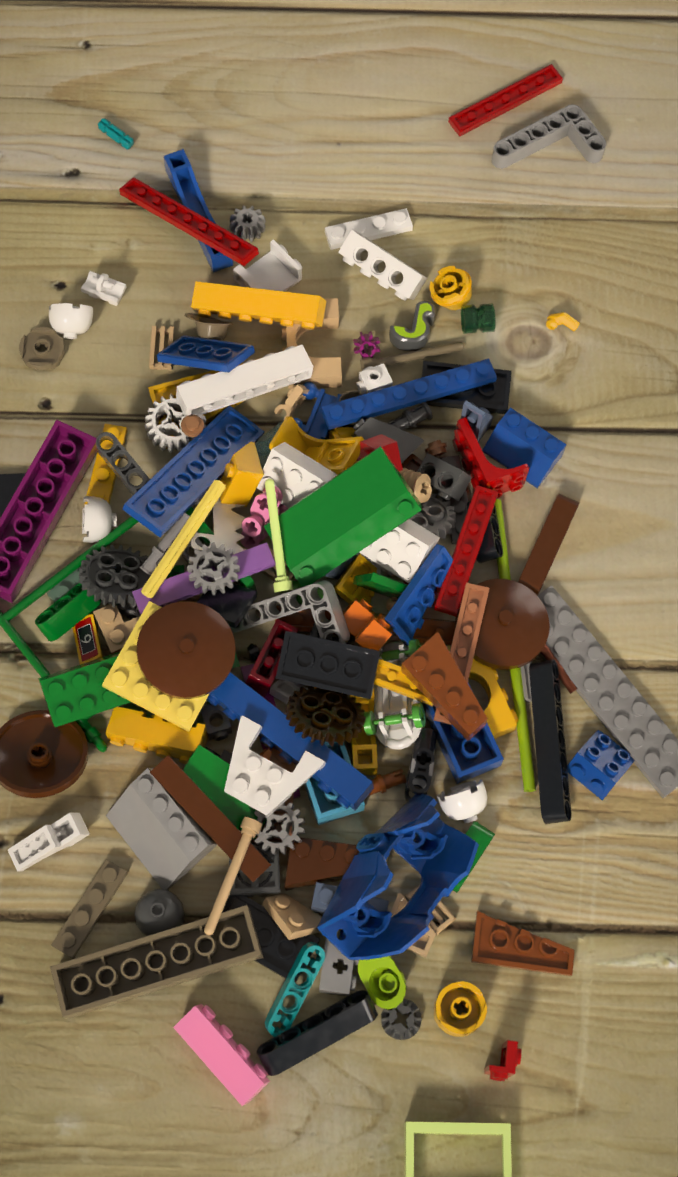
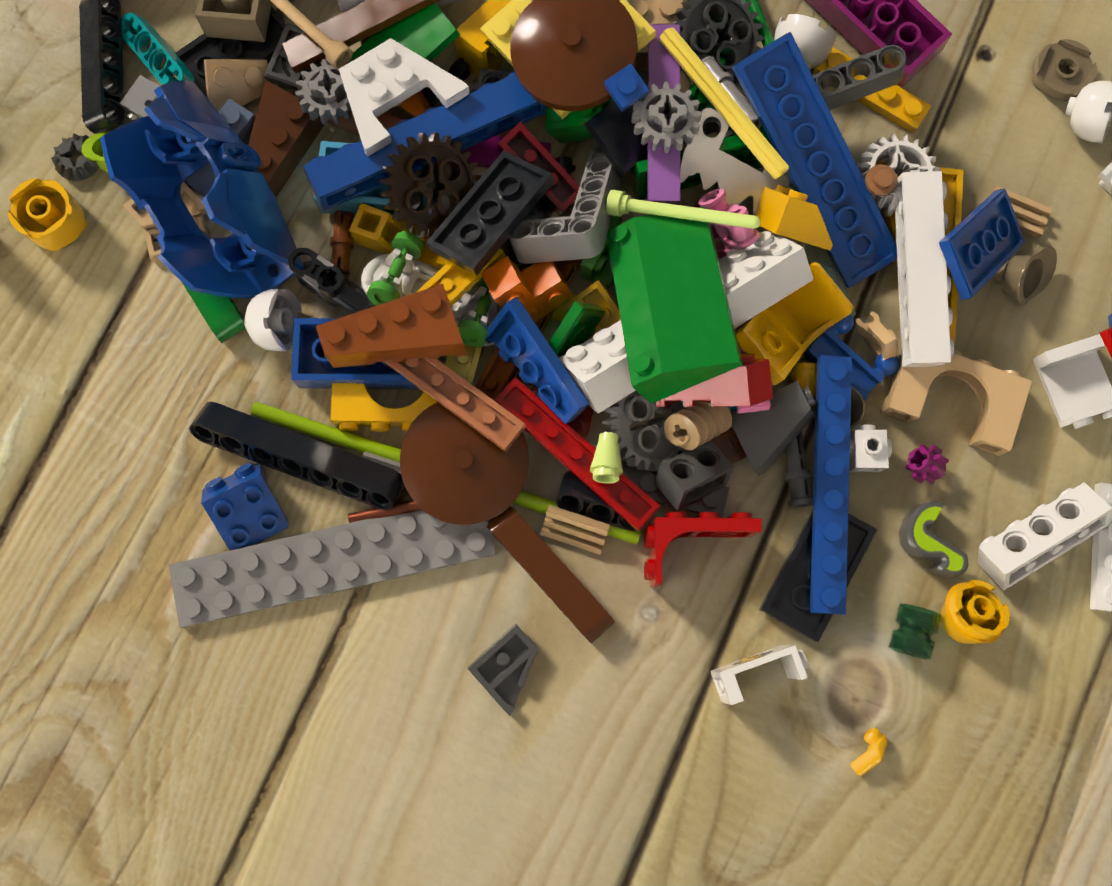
camera: 115 degrees right, 10 degrees up
(207, 597) = (626, 87): none -> blue plate
(258, 304) = (1033, 341): yellow brick -> none
(411, 356) = (897, 462): dark tan piece -> none
(436, 448) = (742, 491): medium nougat plate -> none
(464, 524) = (607, 460): none -> yellowish green cone
(478, 418) = (760, 555): sand blue slope -> none
(511, 541) = (573, 533): none -> tan tile
(517, 948) = (84, 309): dark orange wing -> none
(523, 442) = (698, 606): blue slope -> none
(538, 395) = (725, 680): none -> white panel
(619, 550) = (505, 667): none -> dark grey wing

